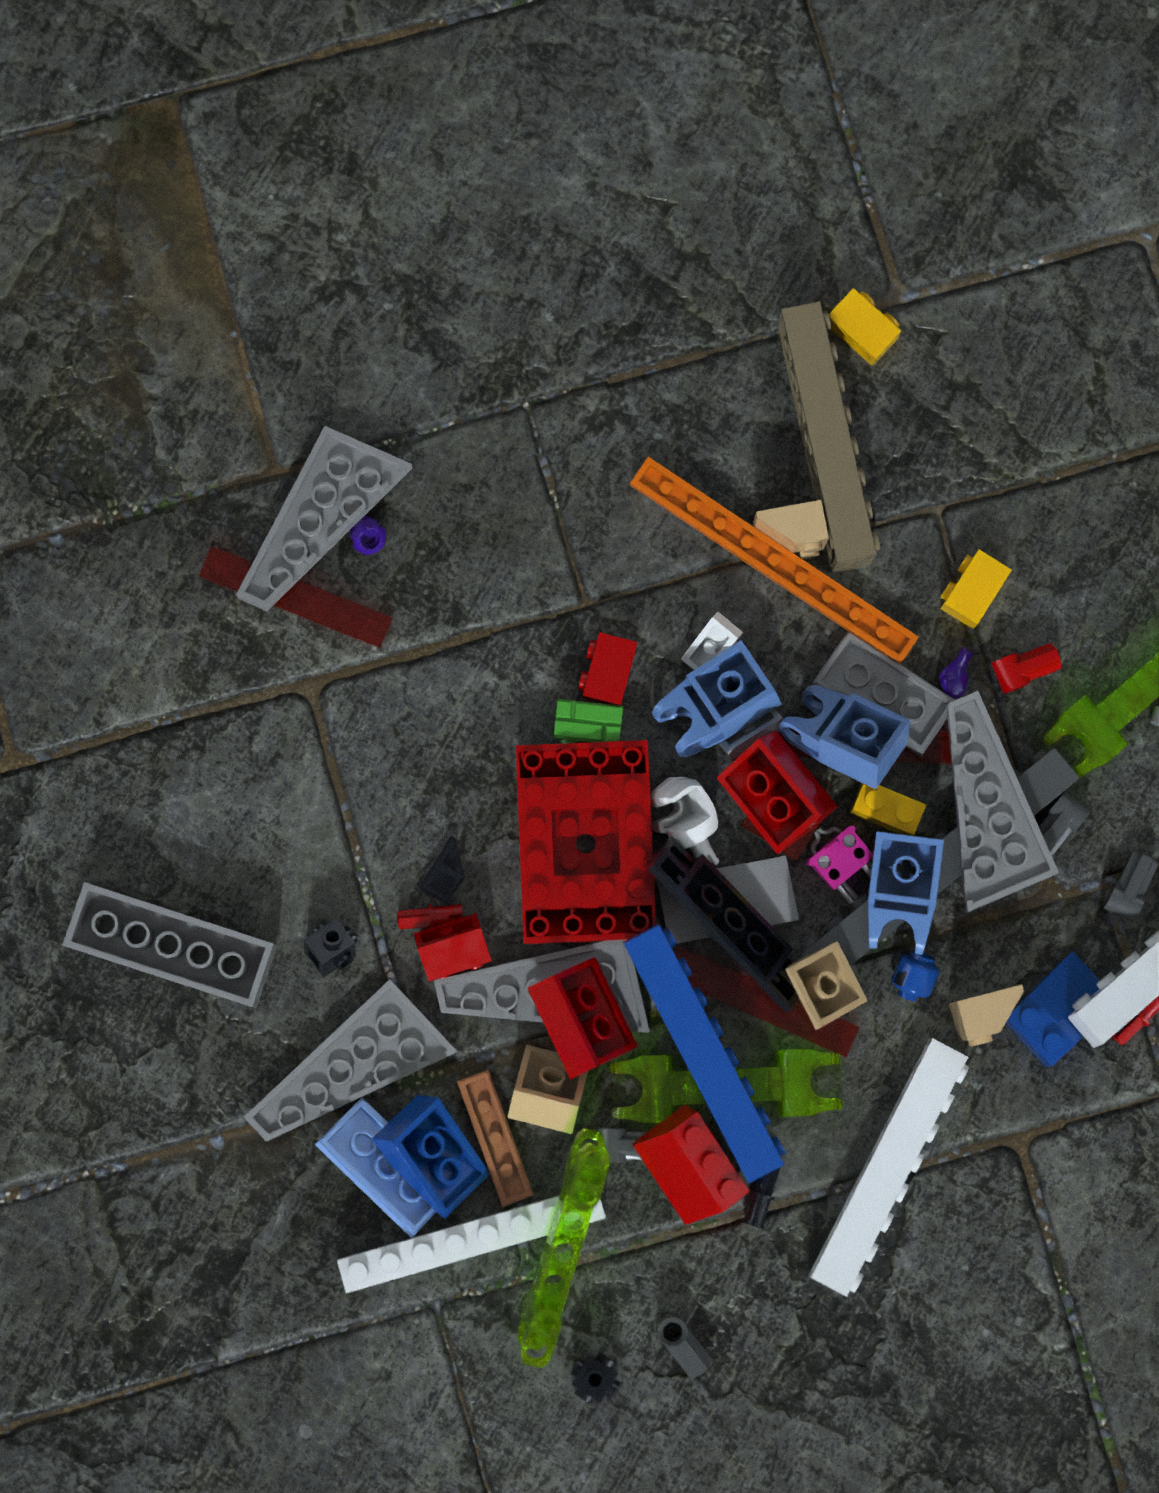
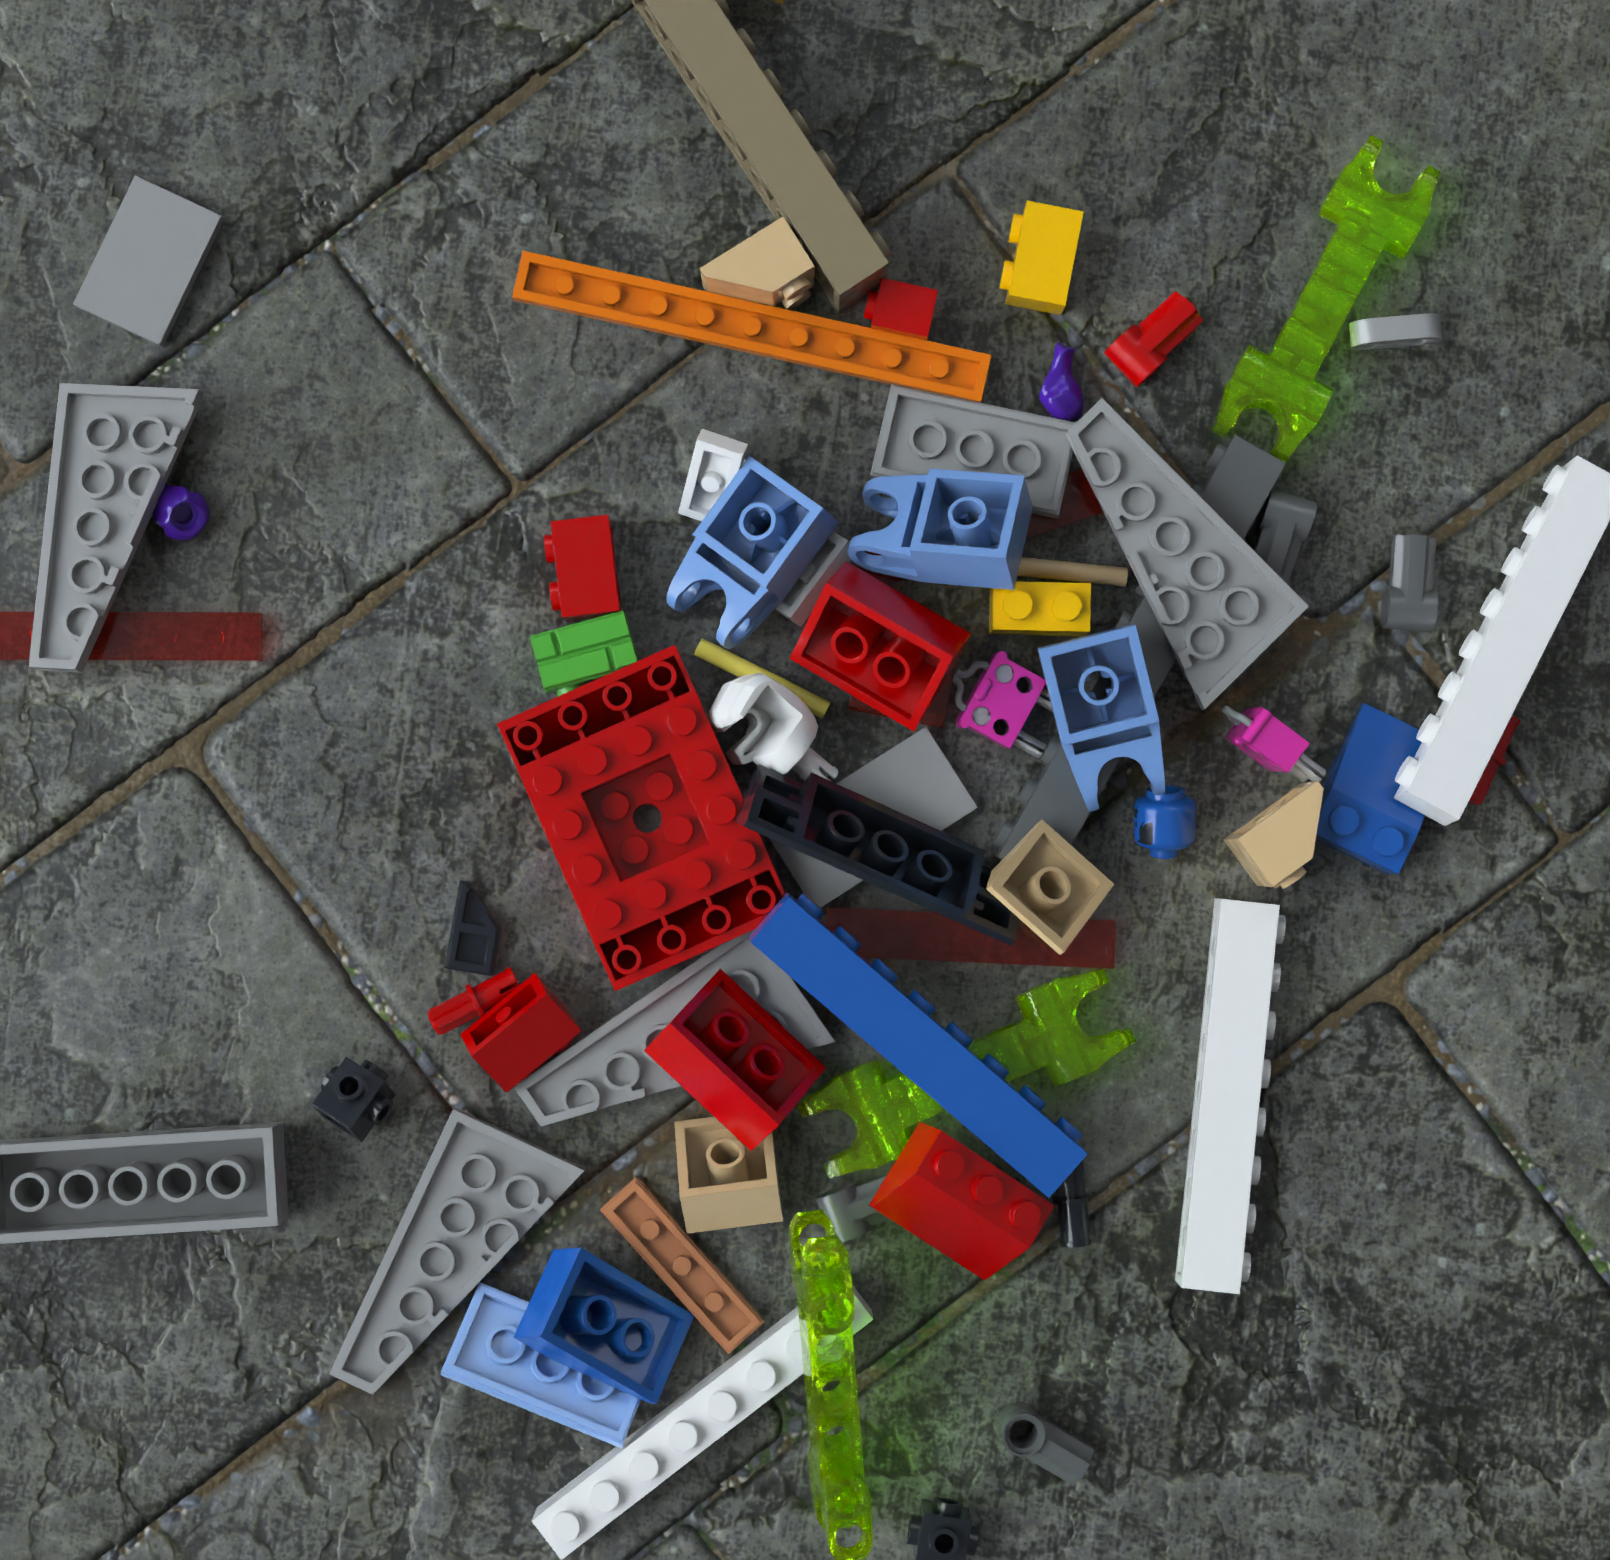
camera: 20 degrees left, 5 degrees up
(410, 371) = (148, 261): none -> light grey tile
(681, 770) = (739, 667): none -> light yellow bar
(873, 585) = (901, 308): none -> red brick
(917, 794) = (1073, 571): none -> tan bar
(1002, 952) = (1271, 743): none -> dark pink piece

